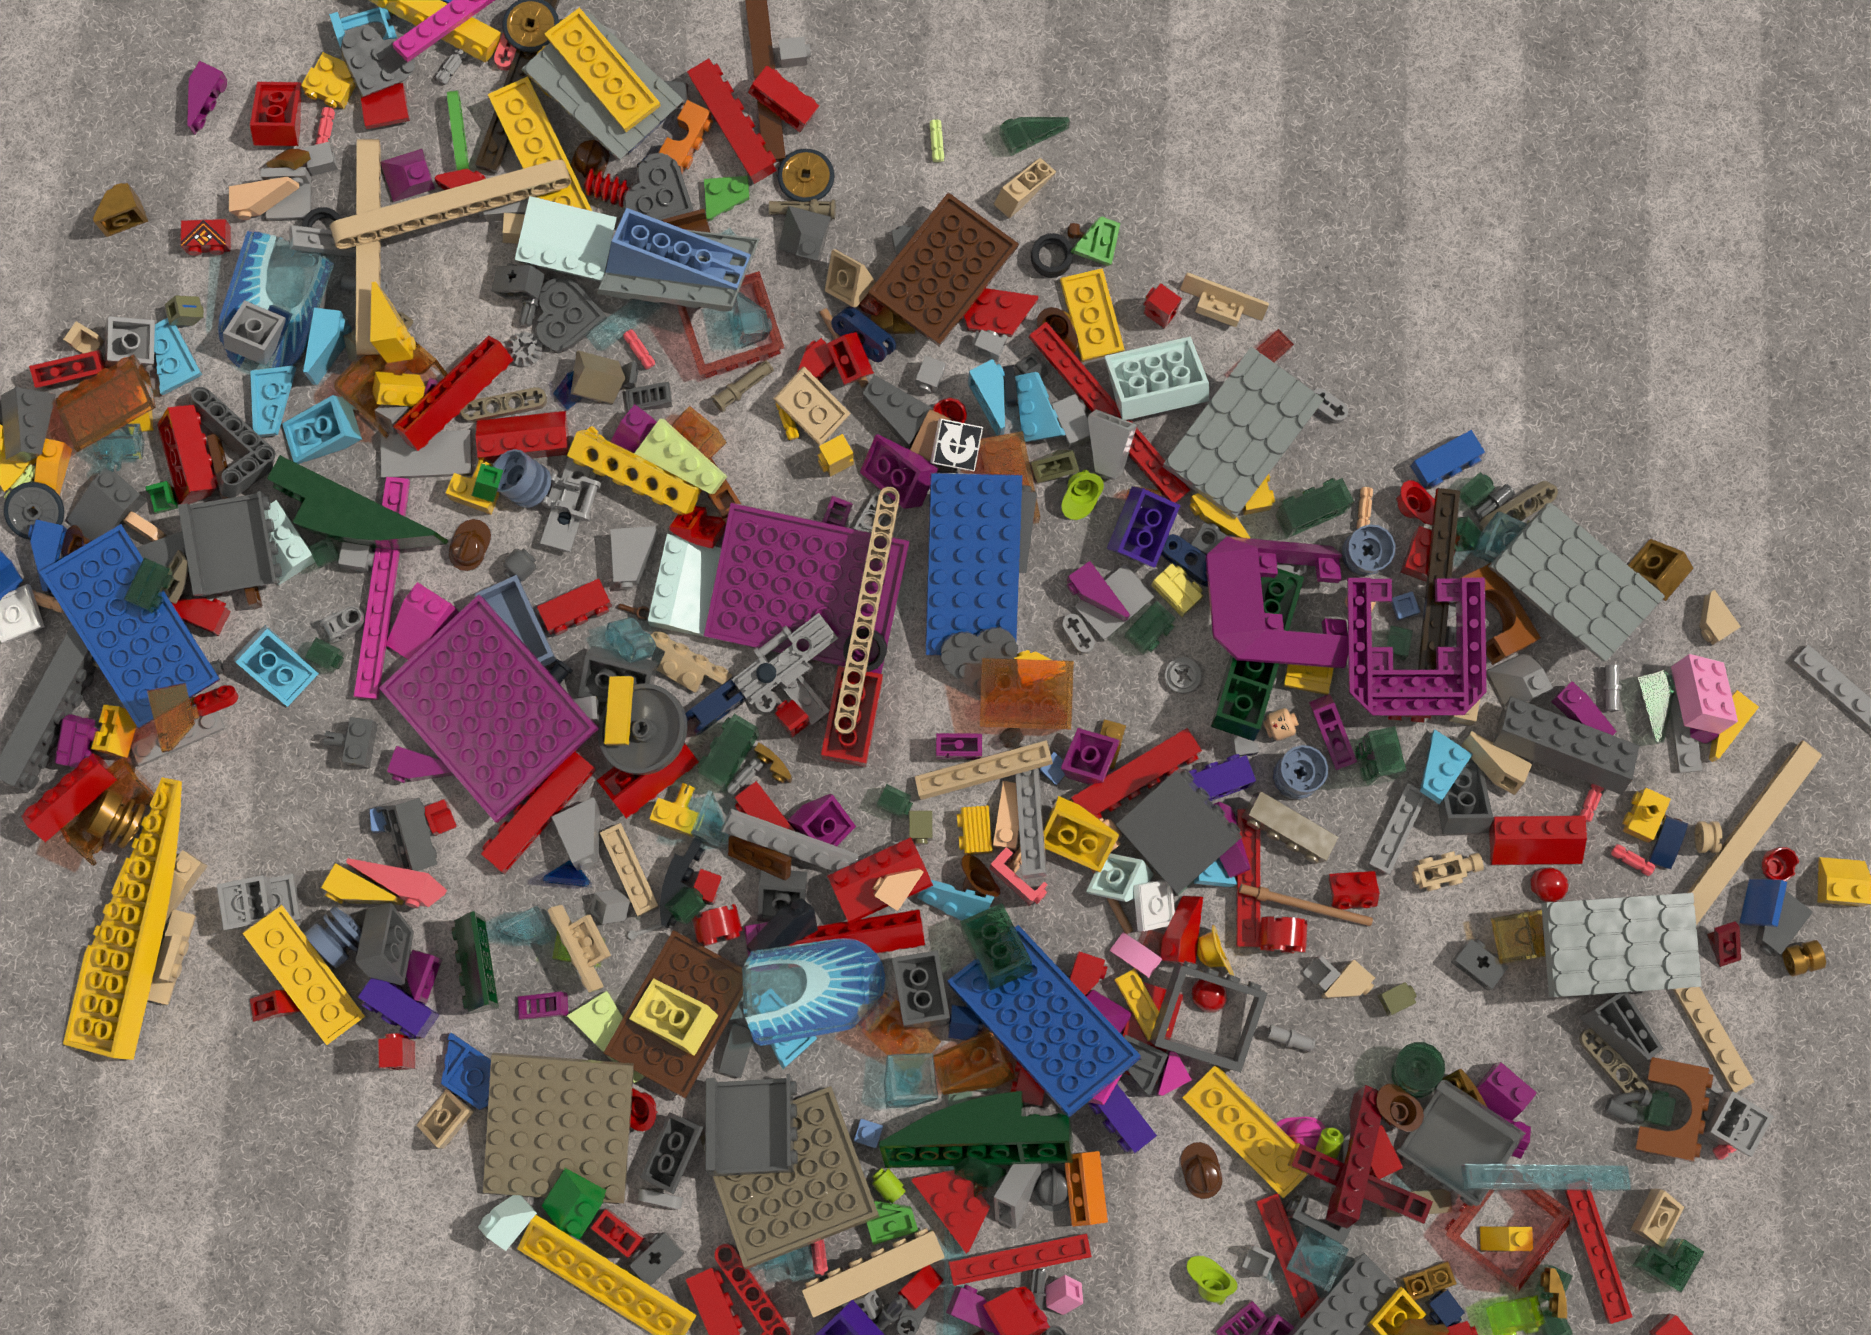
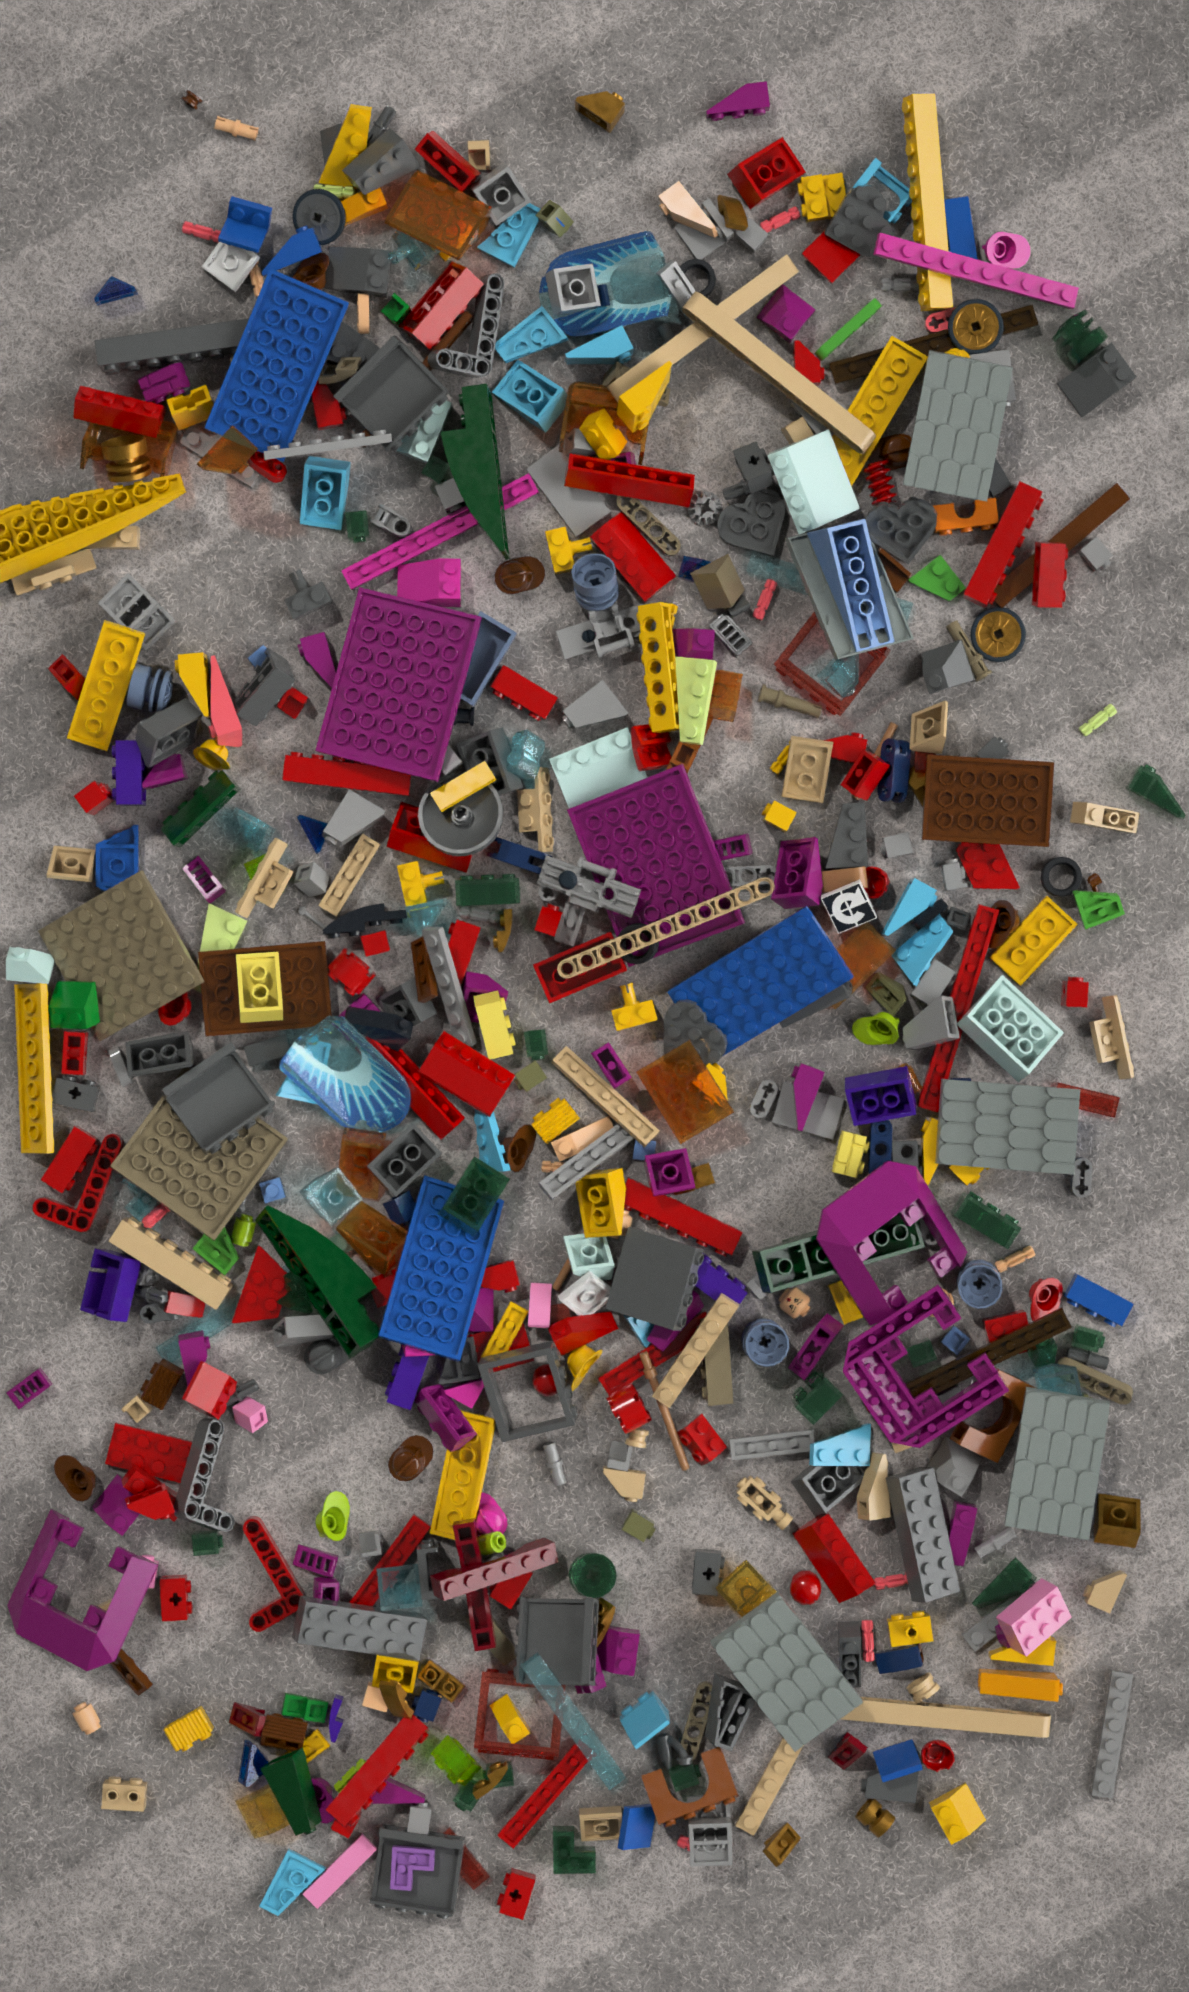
camera: 65 degrees right, 10 degrees up
(149, 585) = (315, 360): clear green brick -> none
(206, 236) = (626, 190): red brick -> none
(236, 620) = (318, 446): none -> light grey plate
(435, 921) = (212, 755): none -> yellow piece
(487, 482) = (573, 560): green panel -> none
(519, 563) = (528, 626): dark grey head -> none
(602, 69) = (968, 419): yellow plate -> none
(633, 610) = (552, 739): reddish brown hand -> none
(685, 905) = (349, 939): clear green brick -> none
(852, 825) = (494, 1024): none -> light yellow brick
(896, 887) = (468, 1091): light nougat slope -> none
(924, 696) = (633, 1011): none -> yellow brick
(1000, 869) = (537, 1156): coral panel -> none
(1019, 1259) = (254, 1365): red plate -> none
(1086, 1189) = (337, 1381): orange brick -> none
(1150, 627) = (804, 1152): clear green brick -> none
(1180, 665) = (790, 1209): light grey gear -> none
(1183, 1110) = (444, 1417): none -> magenta slope
(1268, 837) = (695, 1350): none -> tan plate
(1315, 946) = (637, 1438): none -> tan wheel
(1399, 1108) = (553, 1579): reddish brown piece -> none
(1584, 1109) = (644, 1718): none -> medium azure slope
(1630, 879) = (850, 1651): none -> dark grey slope
(1682, 1185) = (636, 1827): none -> blue tile
(1758, 747) = (1020, 1684): none -> light orange slope
(1778, 1061) = (781, 1844): none -> pearl gold slope

